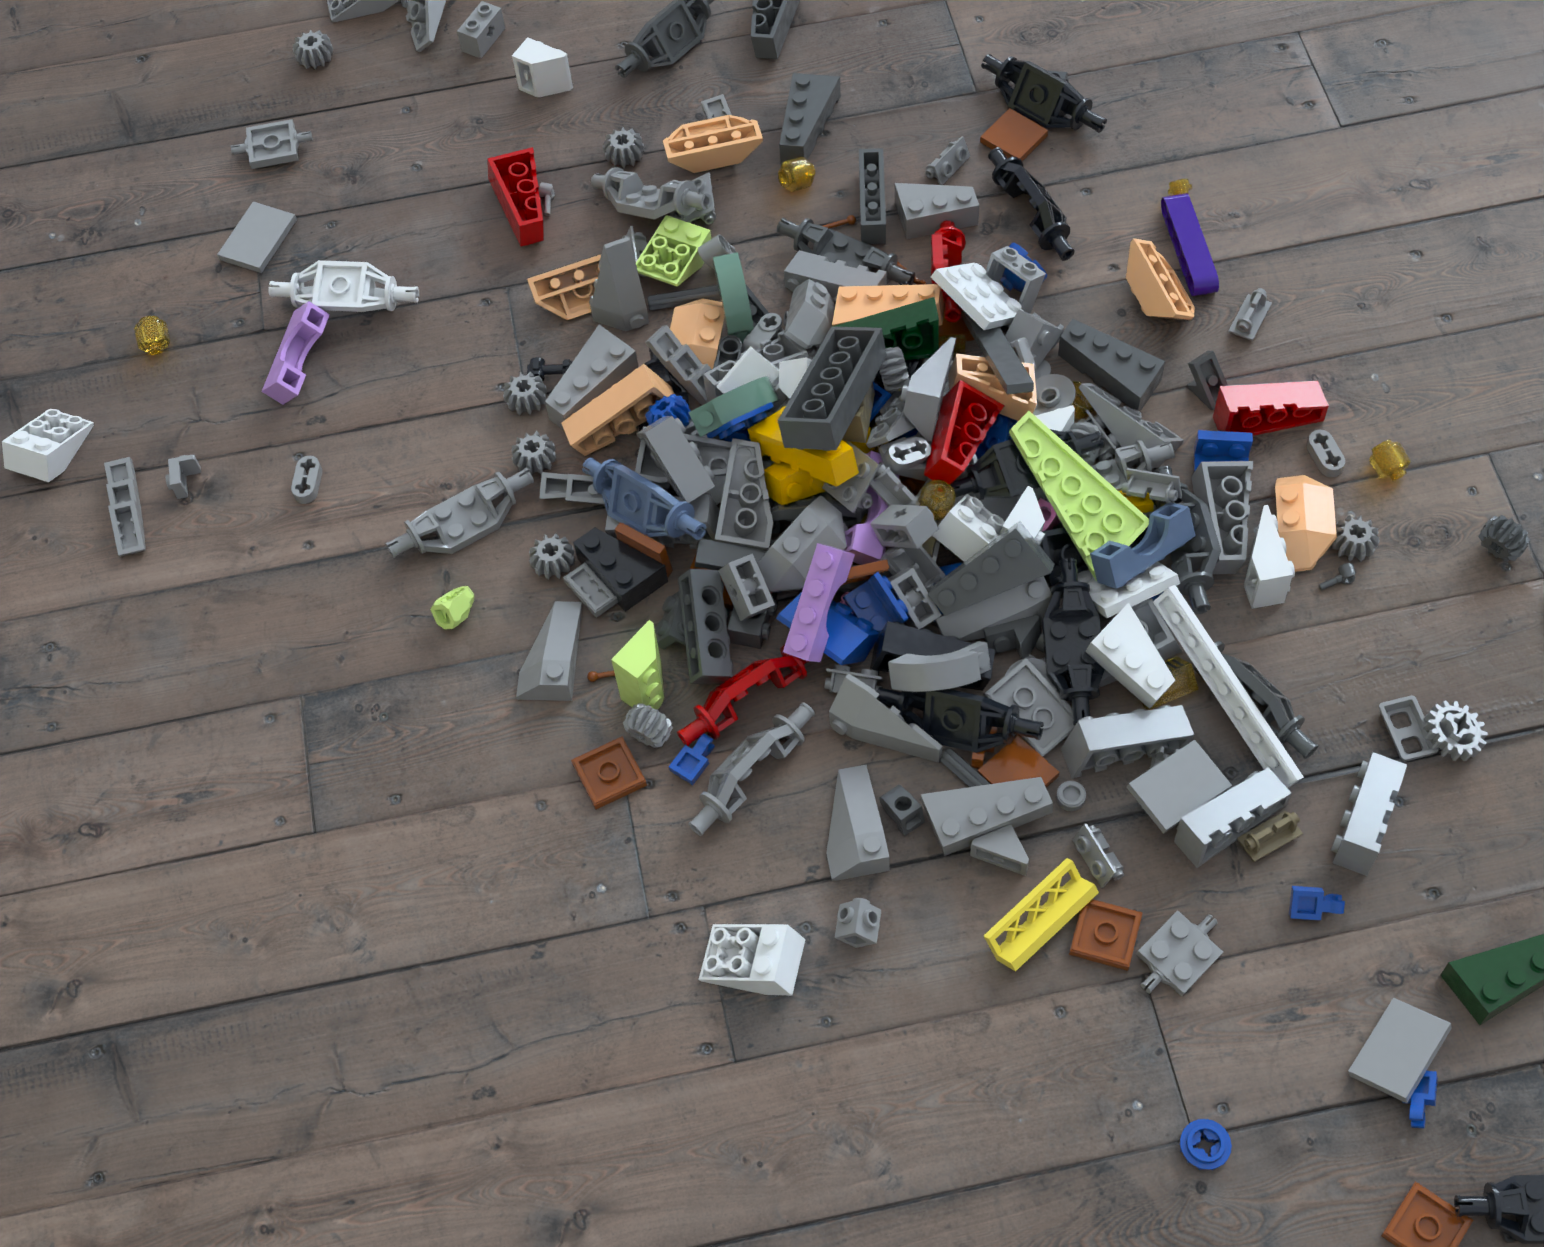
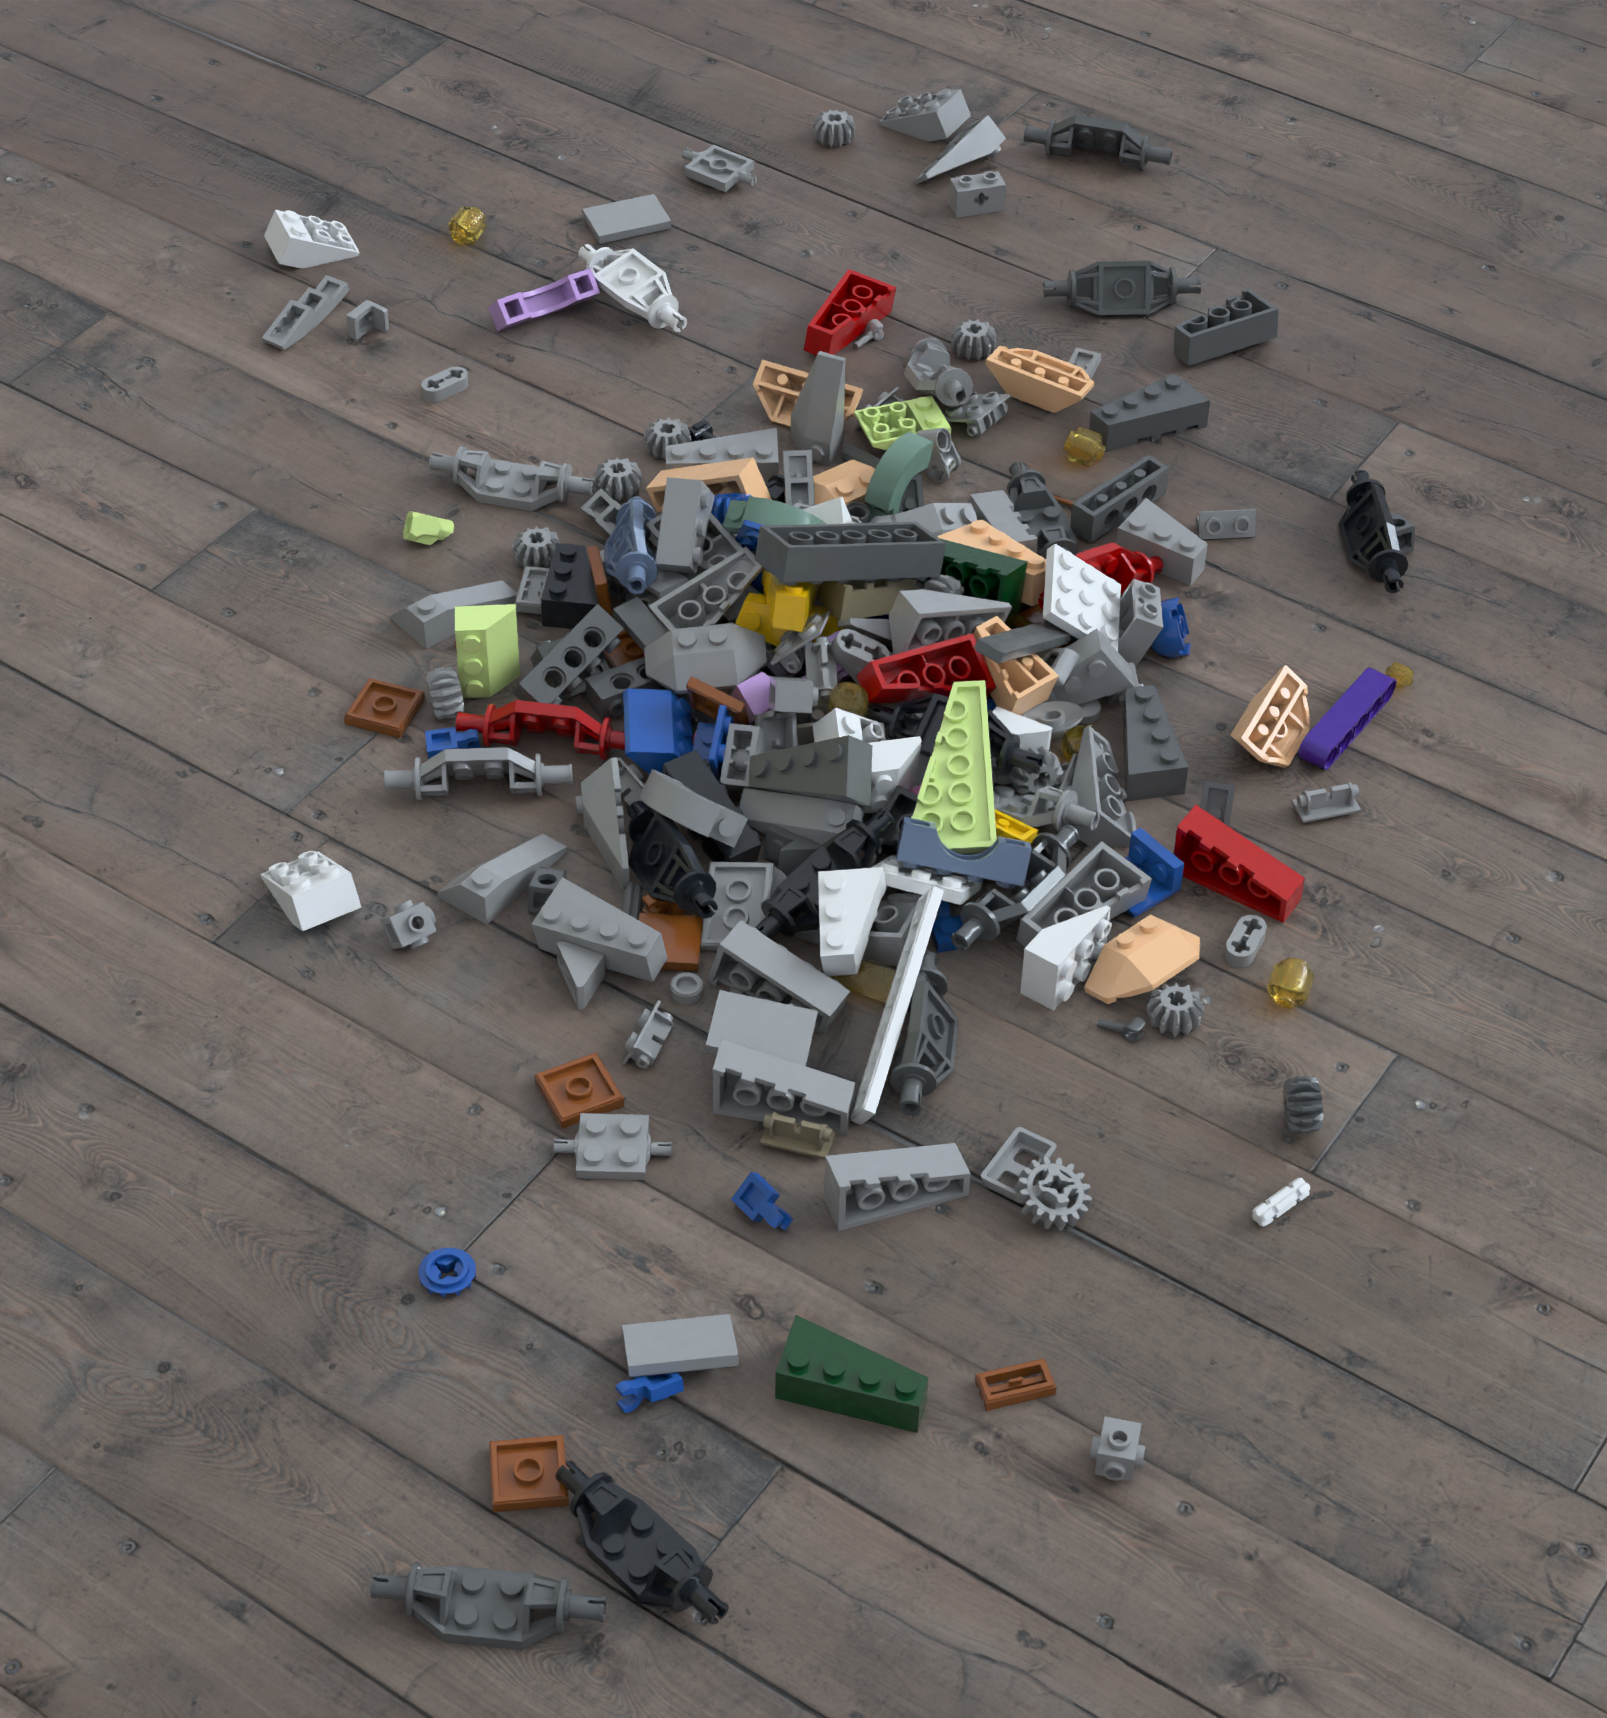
camera: 40 degrees right, 15 degrees down
(541, 69) = (979, 244): white slope -> none
(746, 587) = (624, 650): light grey brick -> none
(825, 576) = (677, 664): lavender arch -> none
(1014, 135) = (1311, 547): dark orange tile -> none
(1042, 921) = (543, 1041): light yellow fence -> none
(1049, 221) = (1255, 598): black plate -> none
(1159, 485) = (1031, 821): light grey hinge -> none

